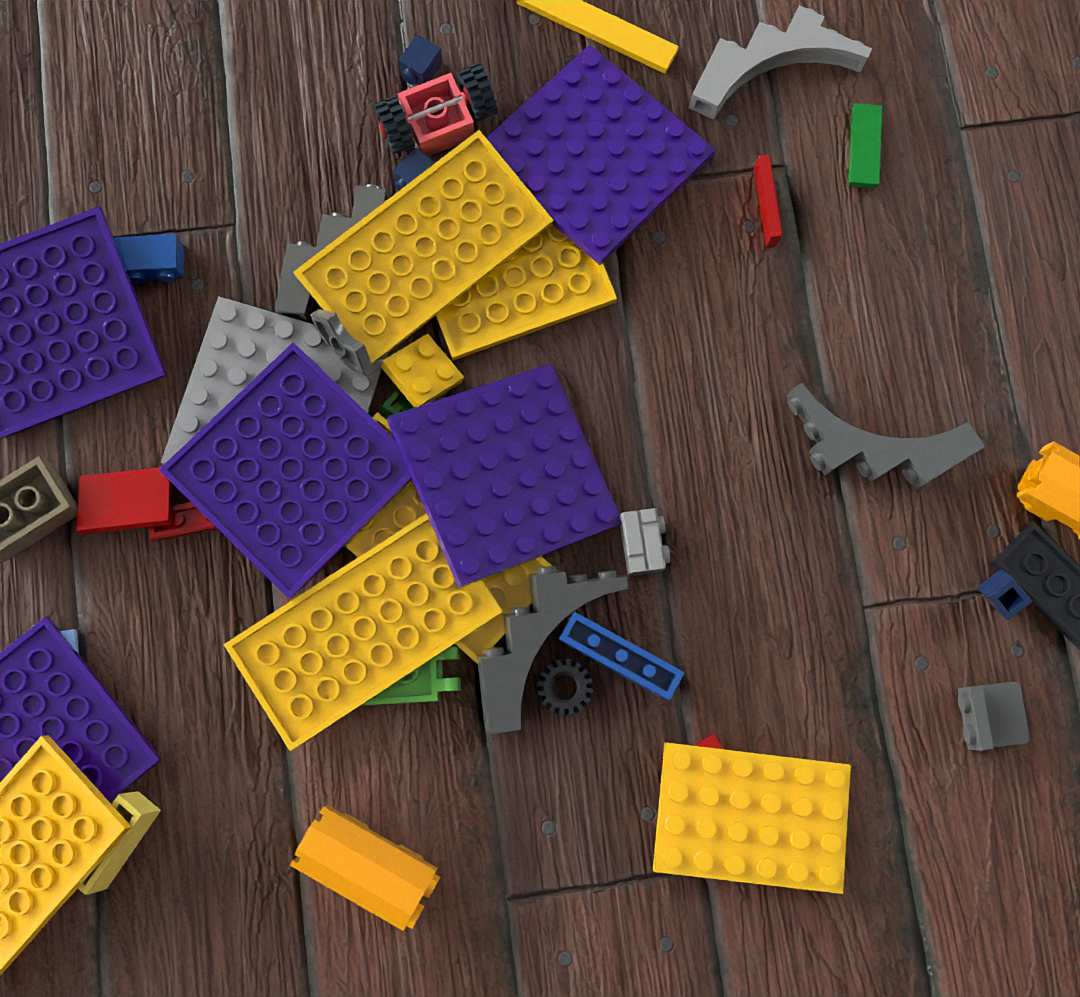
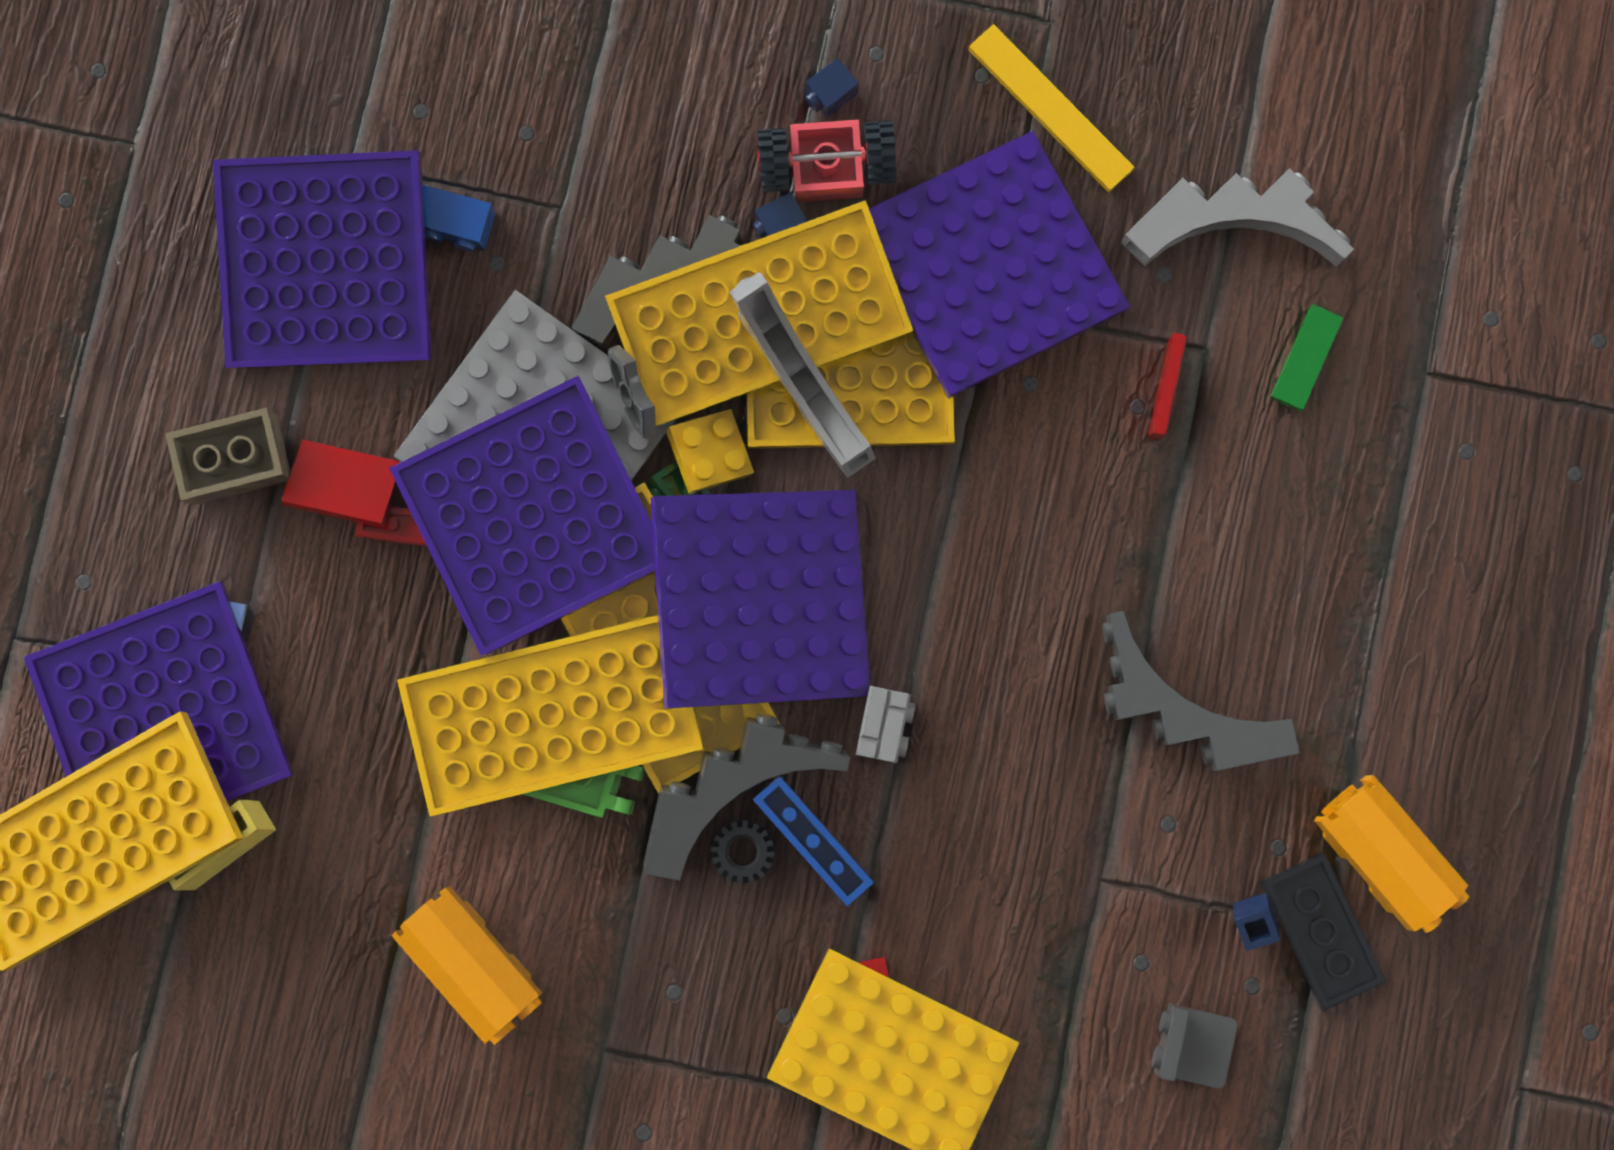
camera: 25 degrees right, 5 degrees up
(470, 277) = (799, 374): none -> light grey arch

